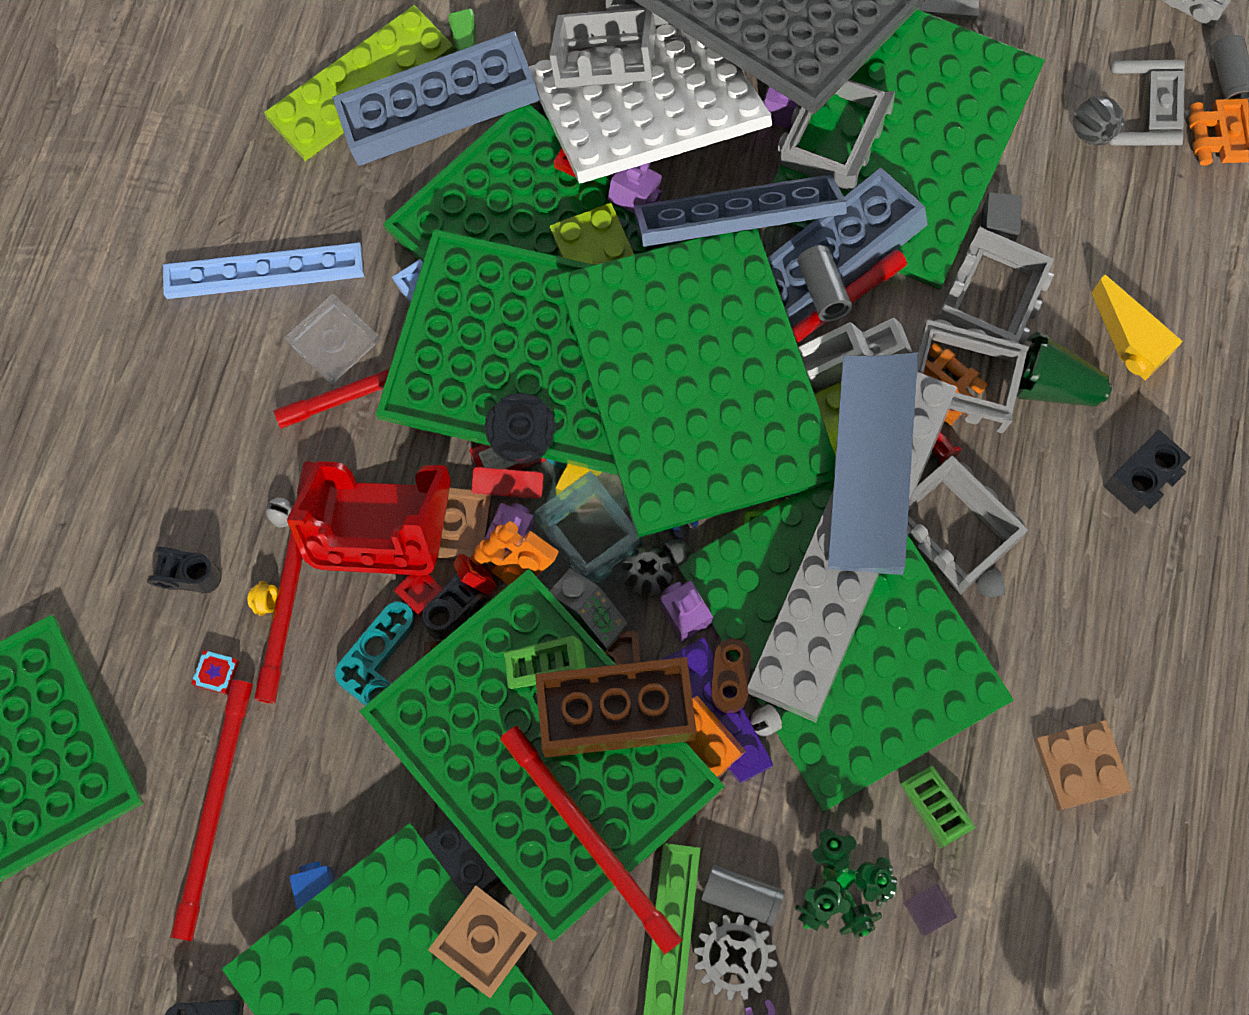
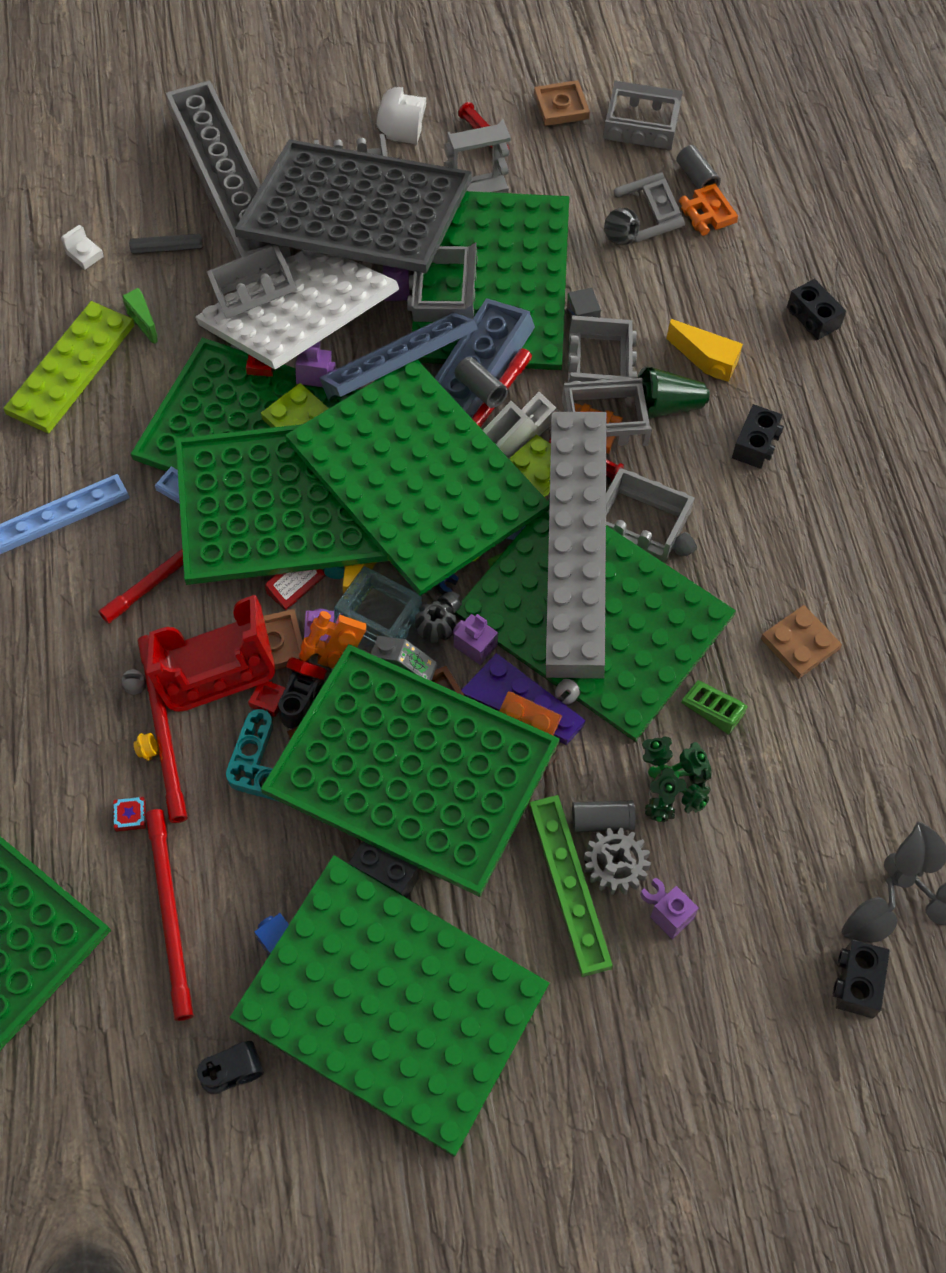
camera: 25 degrees left, 10 degrees down
(178, 569) = (68, 749): black piece -> none
(332, 338) = (123, 547): clear tile -> none
(436, 98) = (136, 355): sand blue arch -> none
(482, 941) = (427, 914): medium nougat plate -> none
(507, 482) = (303, 594): slope -> none
(520, 428) = (300, 550): black tile -> none
(557, 647) = (403, 705): bright green slope -> none
(615, 707) = (457, 708): reddish brown brick -> none
(653, 920) = (548, 846): red piece -> none
(731, 675) = (528, 666): reddish brown plate -> none
(873, 464) = (572, 479): sand blue arch -> none
(930, 910) = (740, 777): clear purple tile -> none

